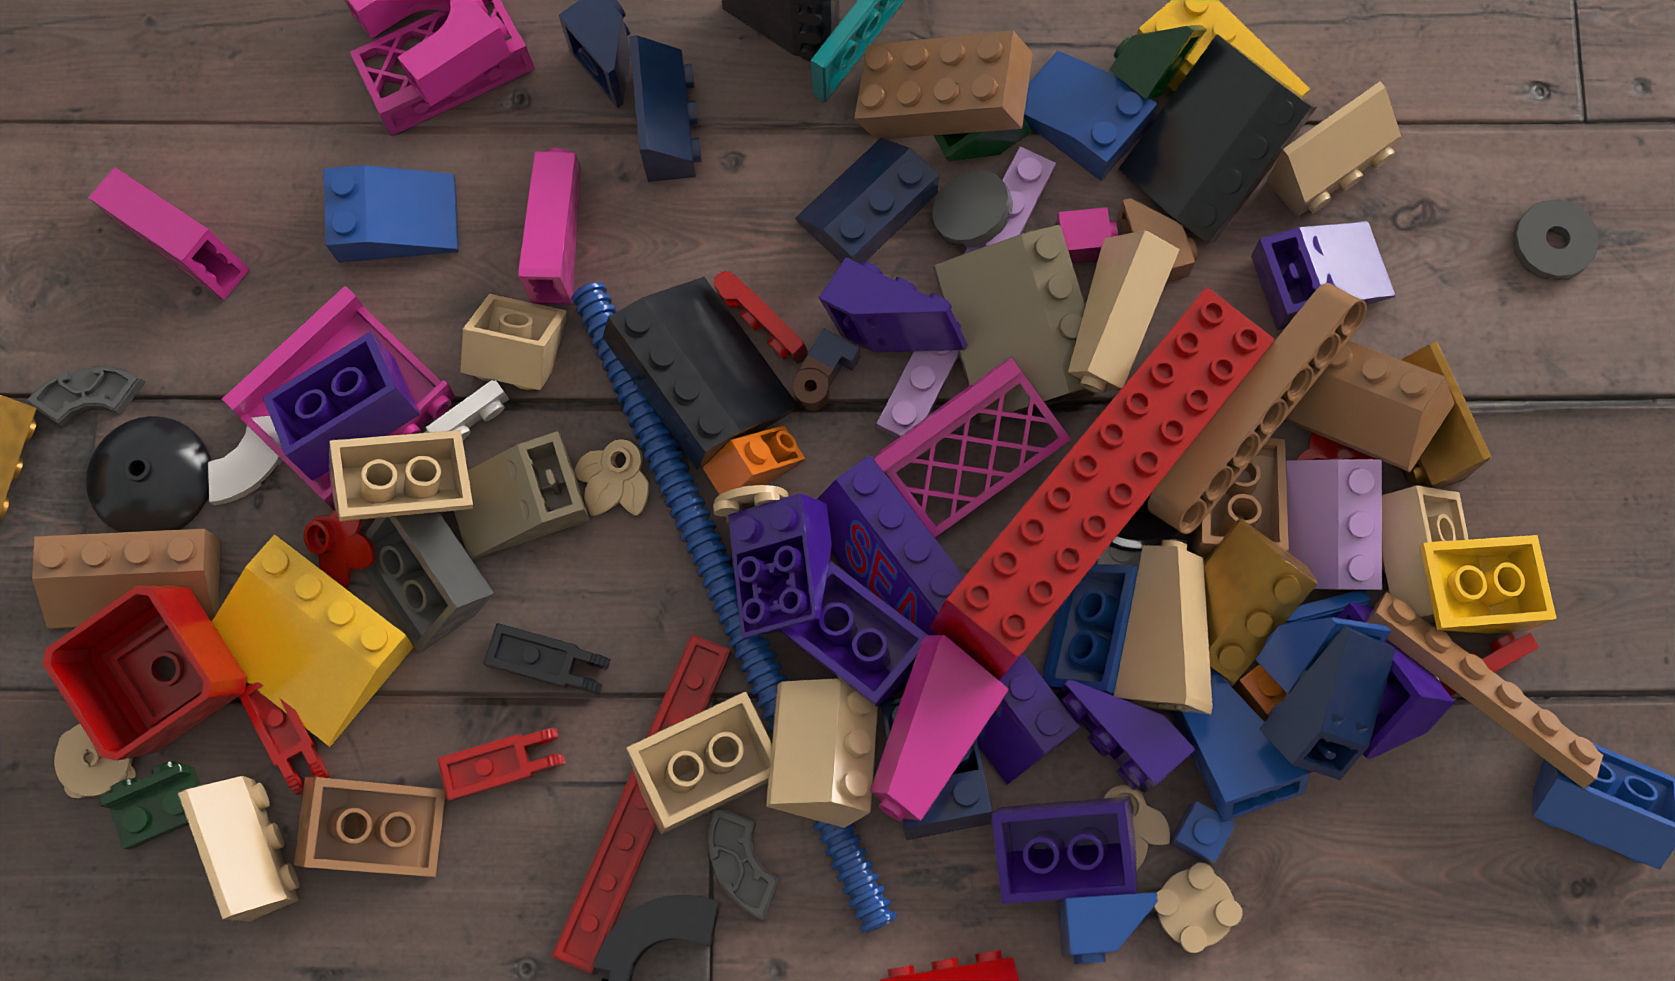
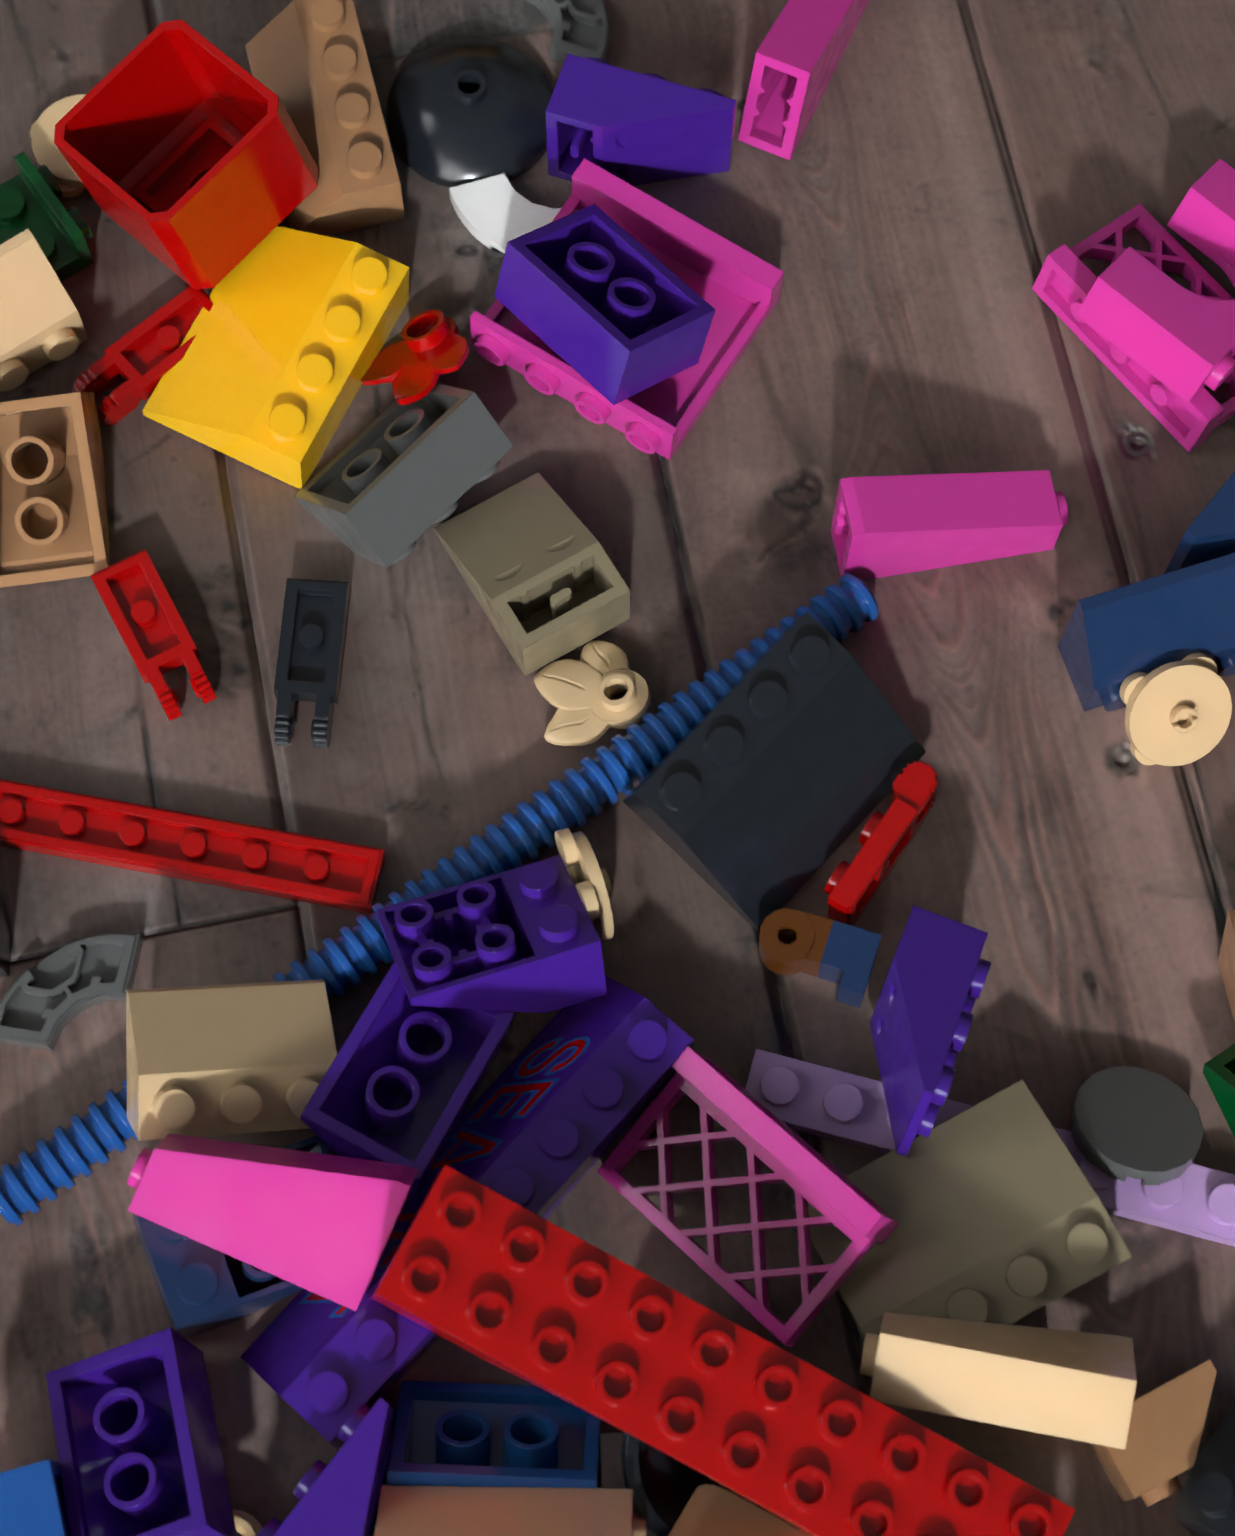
camera: 75 degrees right, 5 degrees down
(203, 361) = (635, 124): none -> dark purple slope
(389, 212) = (912, 307): blue slope -> none
(399, 475) = (511, 394): tan slope -> none
(482, 404) = (622, 463): white hinge -> none
(512, 342) = (762, 511): tan slope -> none
(702, 762) = (186, 892): tan slope -> none
(715, 118) = (1176, 711): none -> tan piece
(754, 459) = (657, 881): orange slope -> none
(870, 201) = (1106, 969): dark blue slope -> none
(1085, 232) = (1141, 1307): dark pink brick -> none

